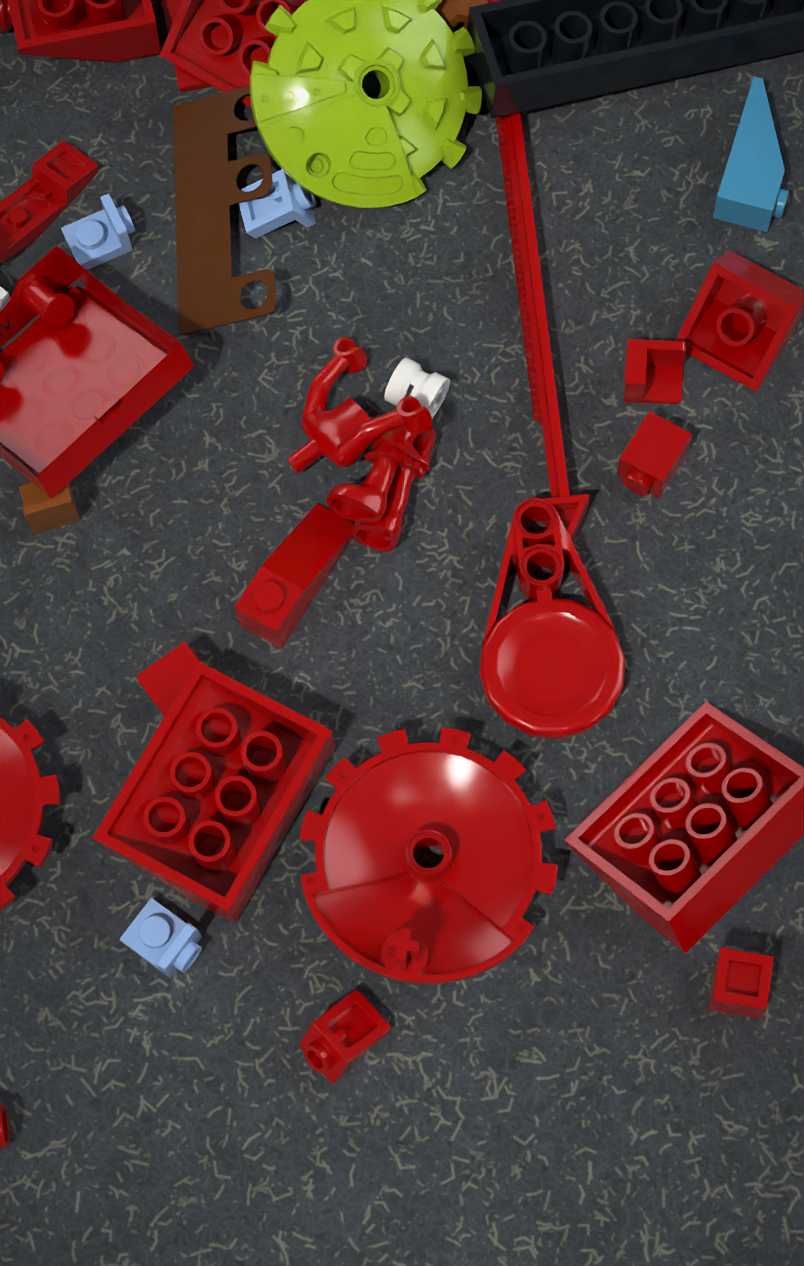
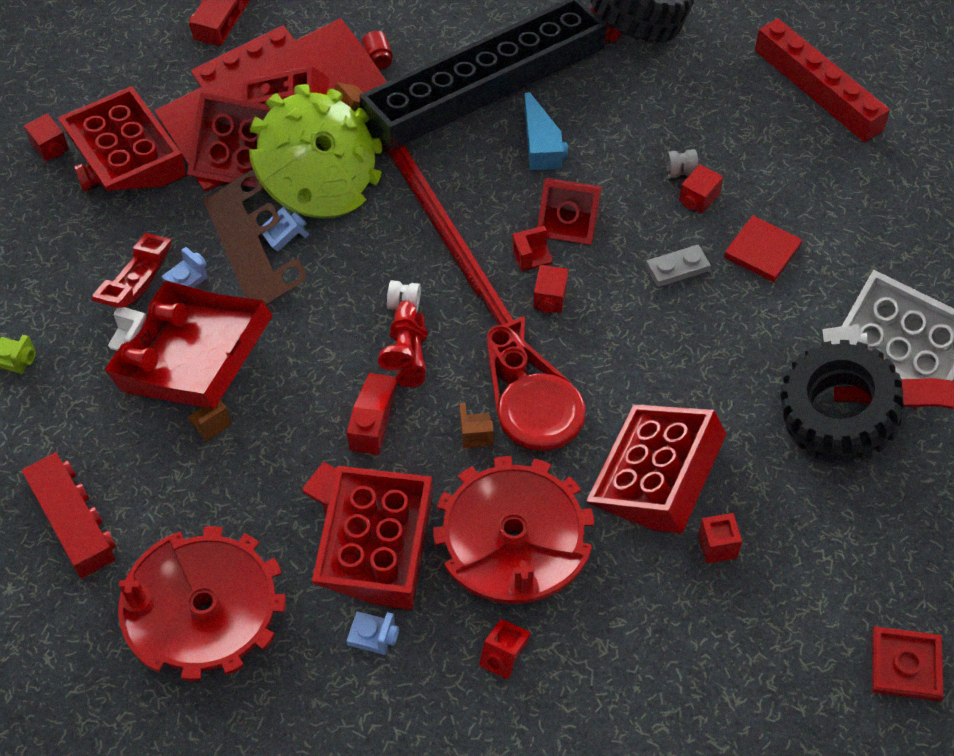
camera: 25 degrees left, 15 degrees down
(347, 429) = (374, 325): red piece -> none
(441, 657) = (476, 429): none -> dark orange panel

